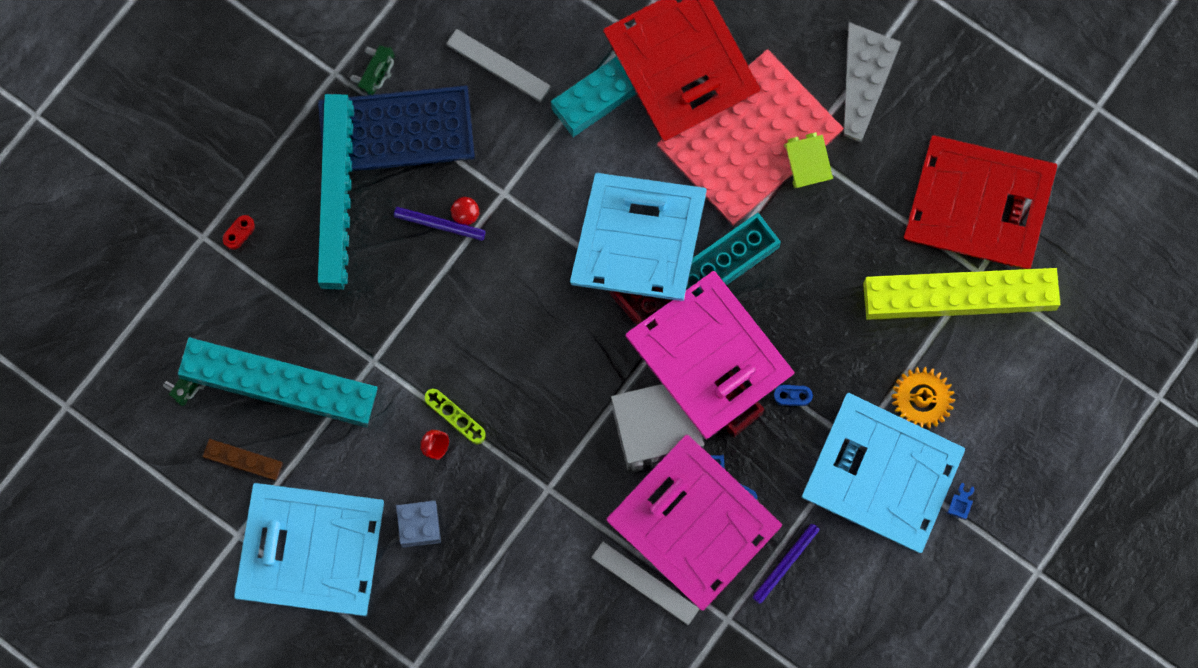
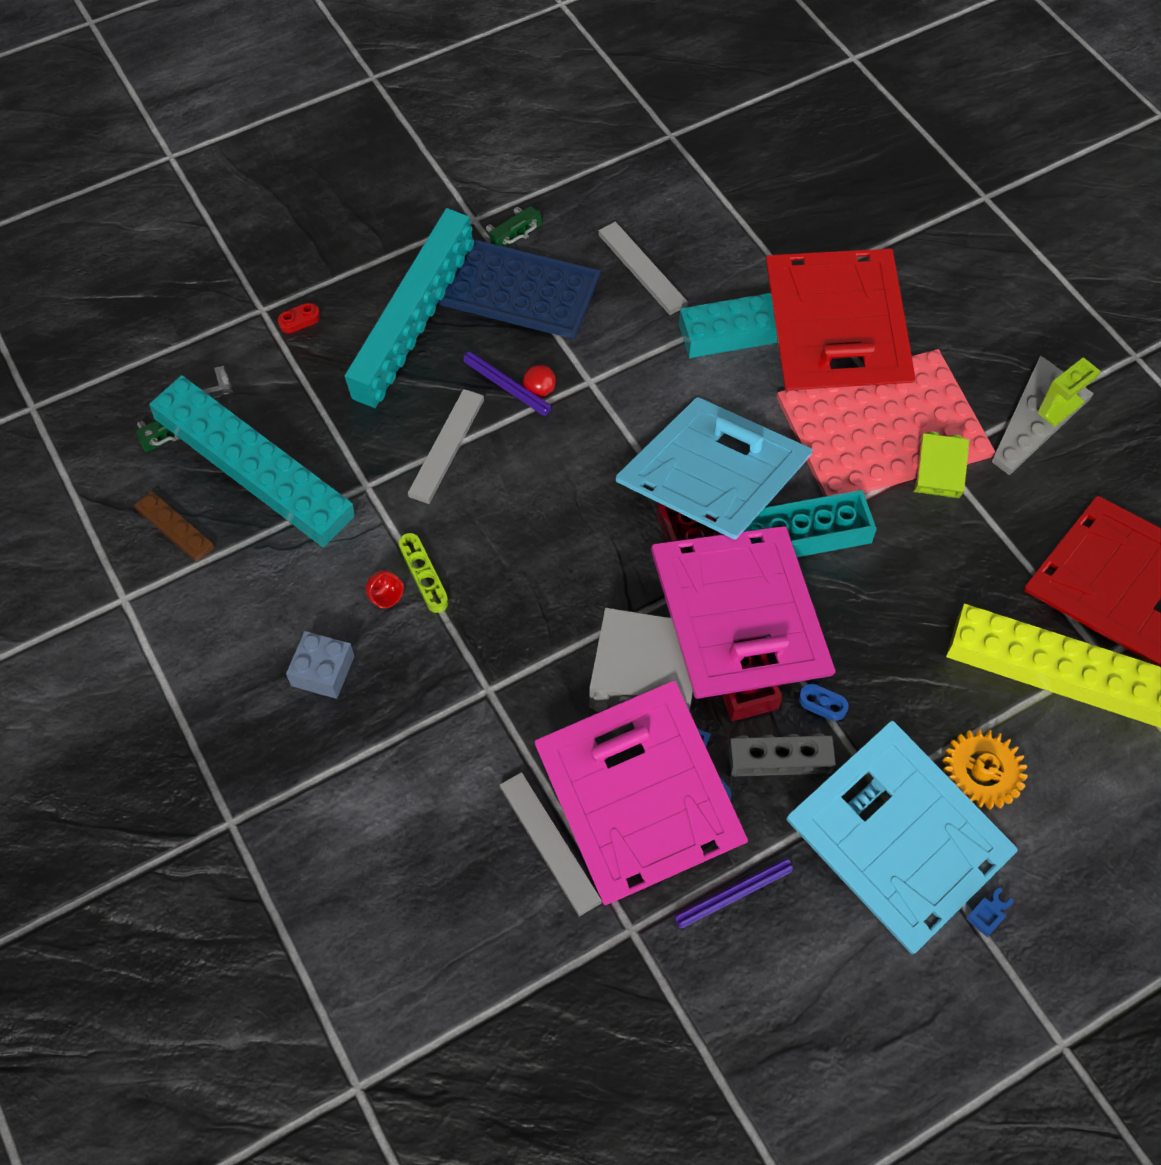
camera: 25 degrees right, 15 degrees down
(217, 330) = (224, 384): none -> clear panel
(323, 551) = (203, 656): medium azure door -> none
(419, 300) = (446, 446): none -> light grey tile
(755, 467) = (795, 763): none -> dark grey brick
(883, 62) = (1062, 395): none -> lime panel

